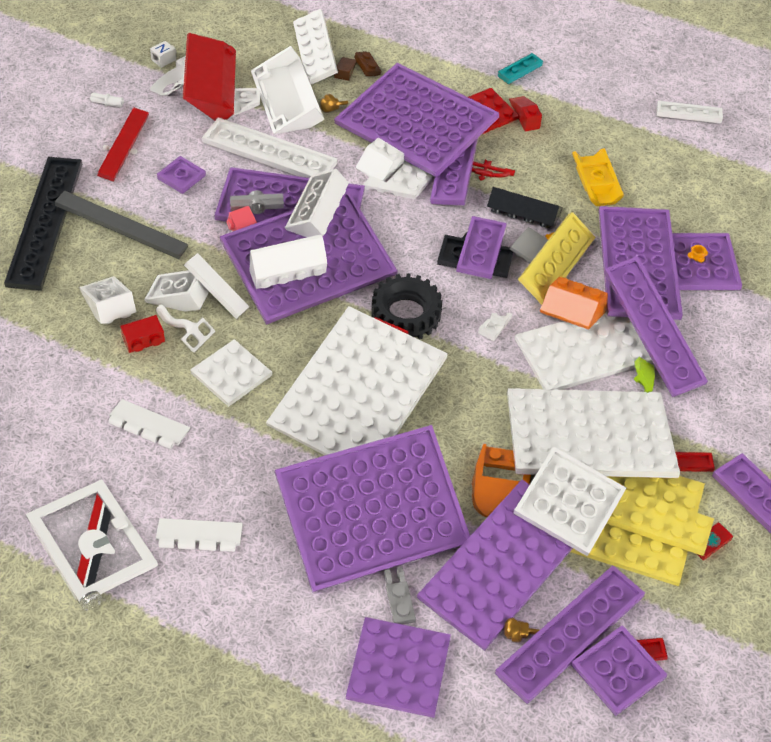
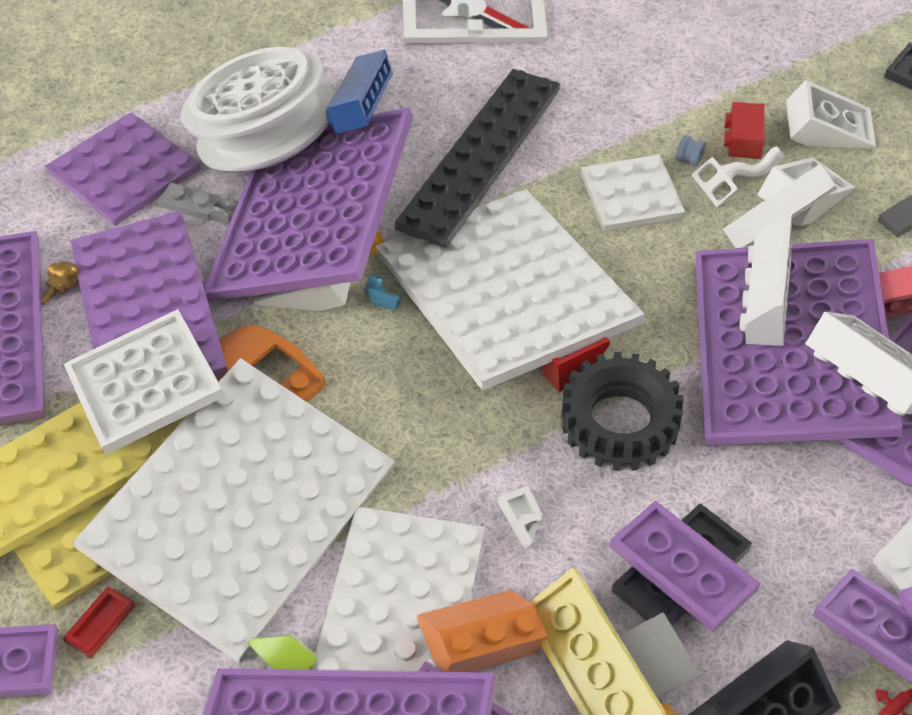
camera: 125 degrees right, 0 degrees up
(152, 424) = (606, 97): white windscreen -> none
(178, 353) = (691, 150): none -> sand blue wheel
(205, 533) = (418, 81): white windscreen -> none
(245, 454) = (477, 158): none -> black plate
(255, 528) = (360, 92): none -> brick
(300, 614) = (258, 109): none -> white wheel

